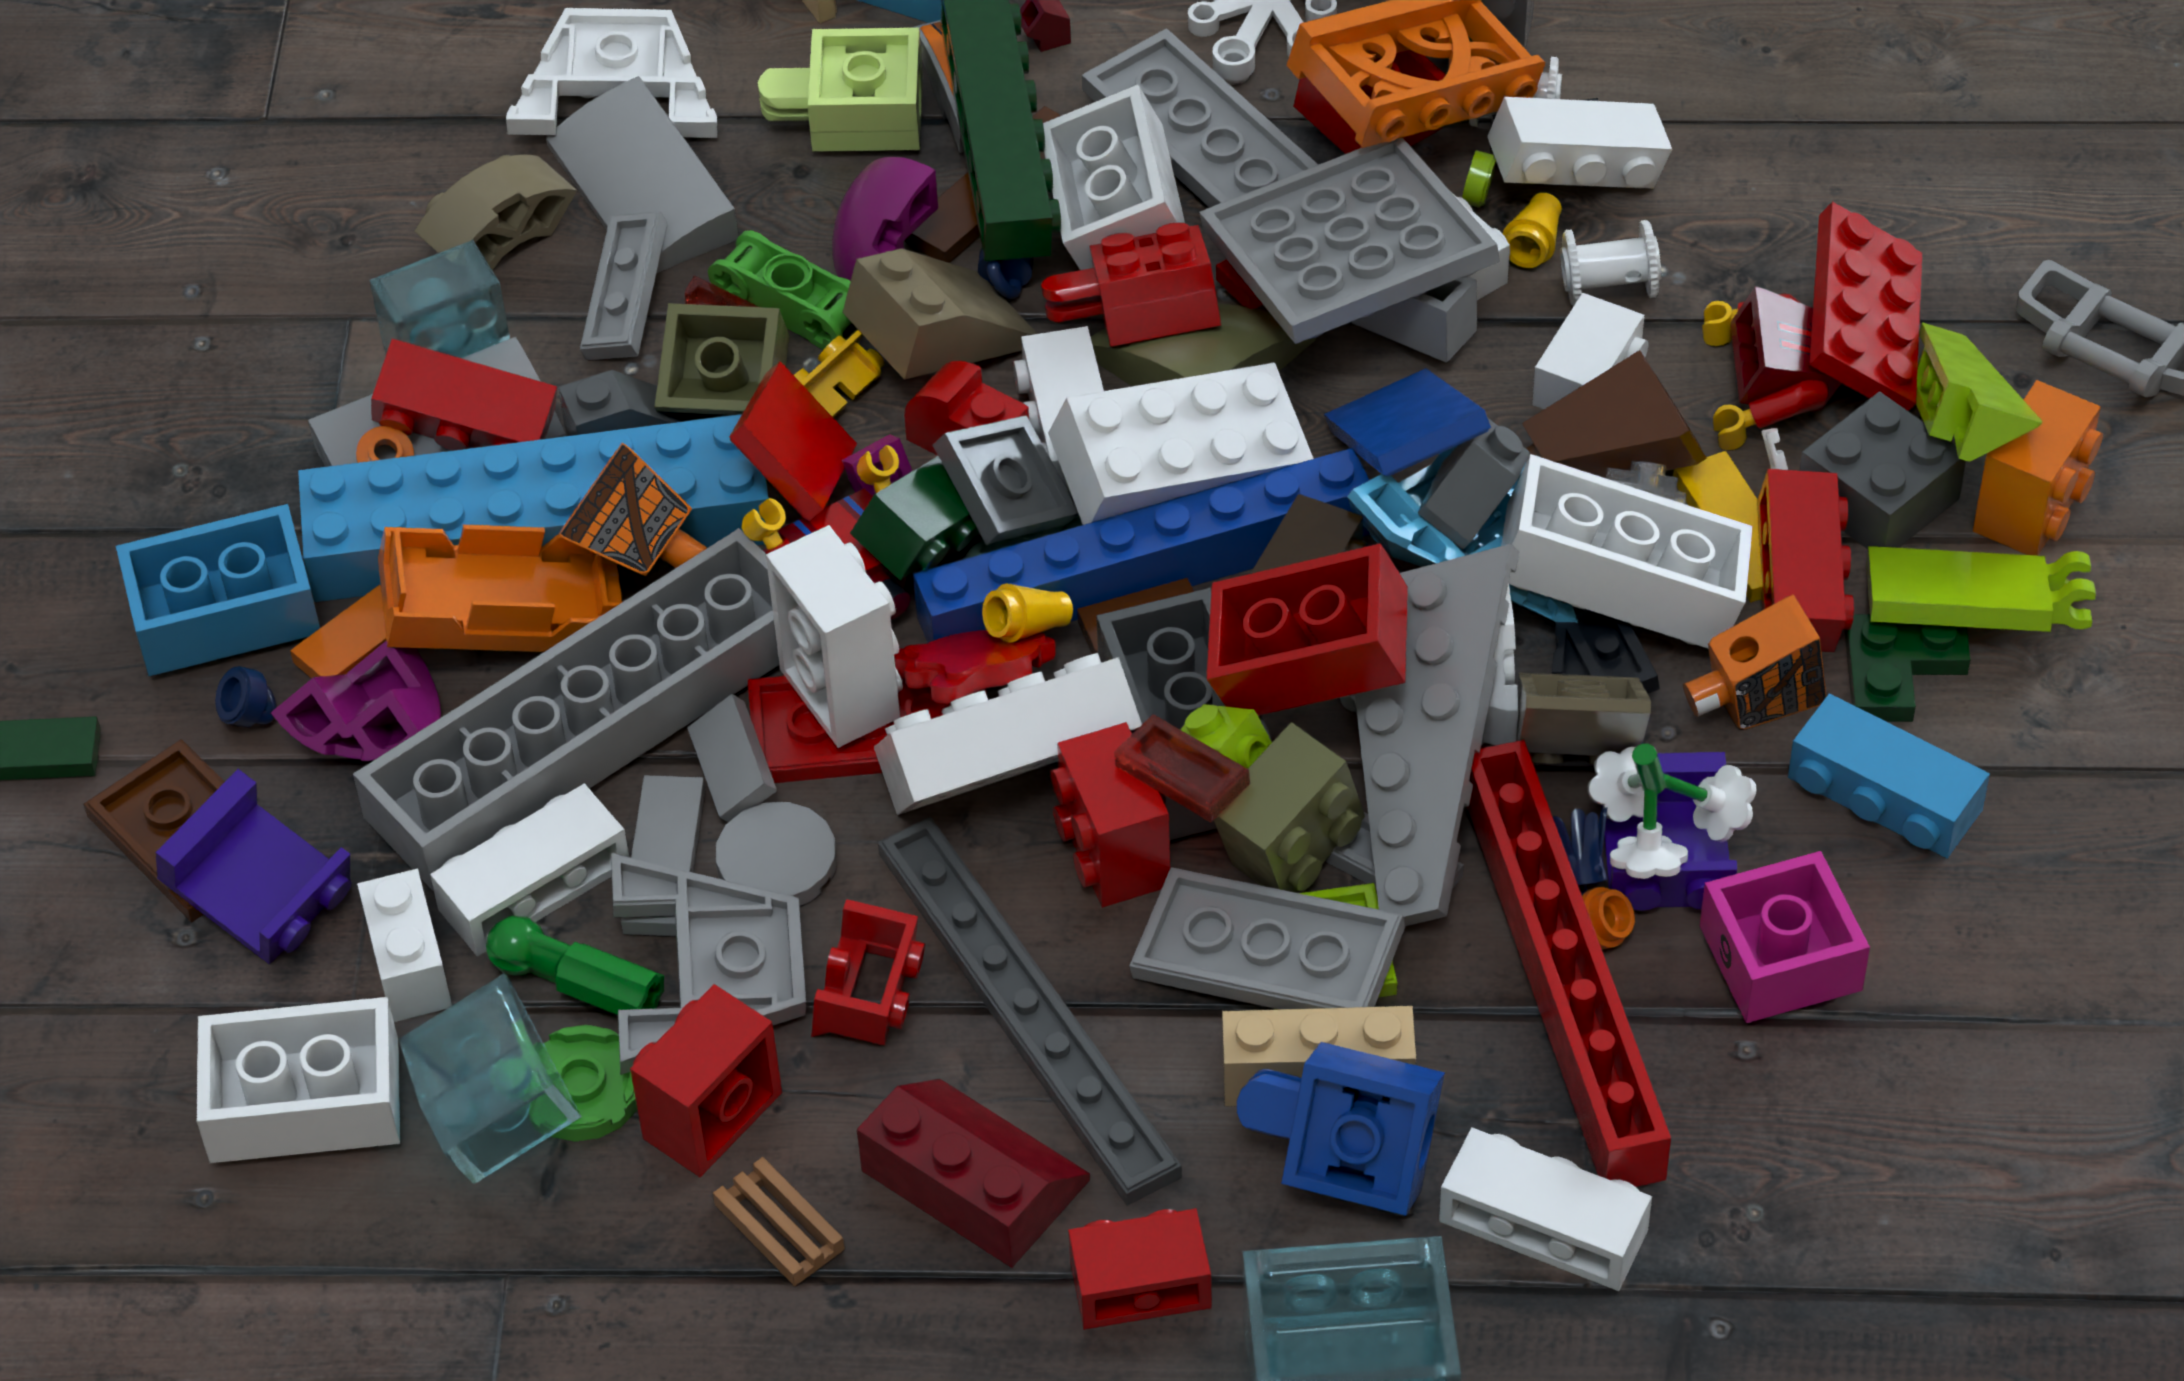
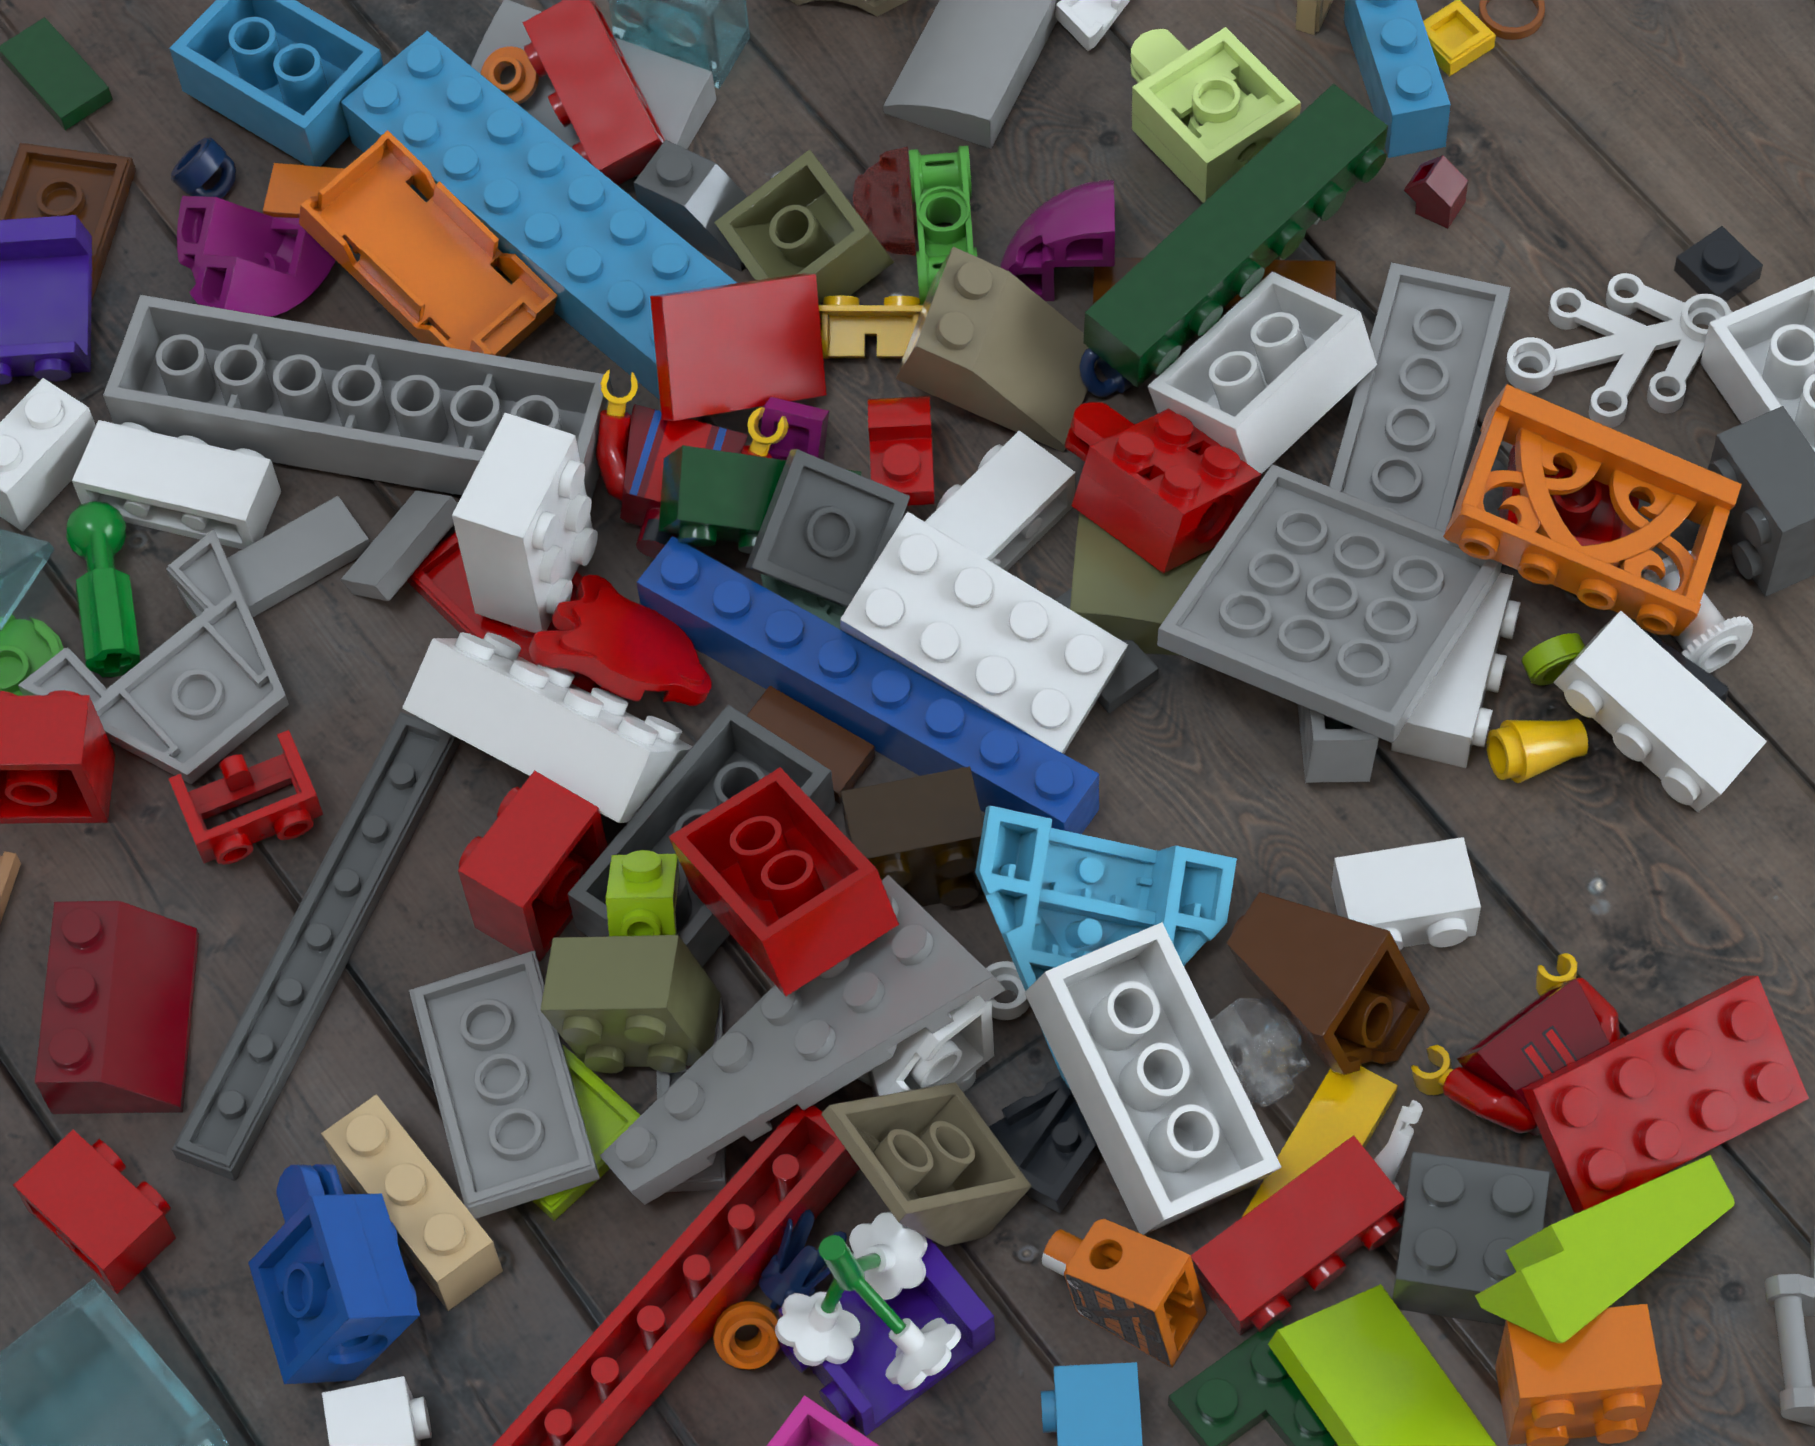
camera: 55 degrees right, 10 degrees up
(623, 286) = (848, 104): light grey tile -> none
(632, 517) = (549, 290): torso -> none
(778, 850) = (334, 648): light grey tile -> none
(1021, 611) = (700, 648): yellow cone -> none
(1182, 768) = (568, 884): clear red tile -> none
(1407, 422) = (1150, 796): blue tile -> none
(1473, 483) = (1110, 898): dark grey slope -> none
(1611, 263) = (1537, 837): white hose -> none

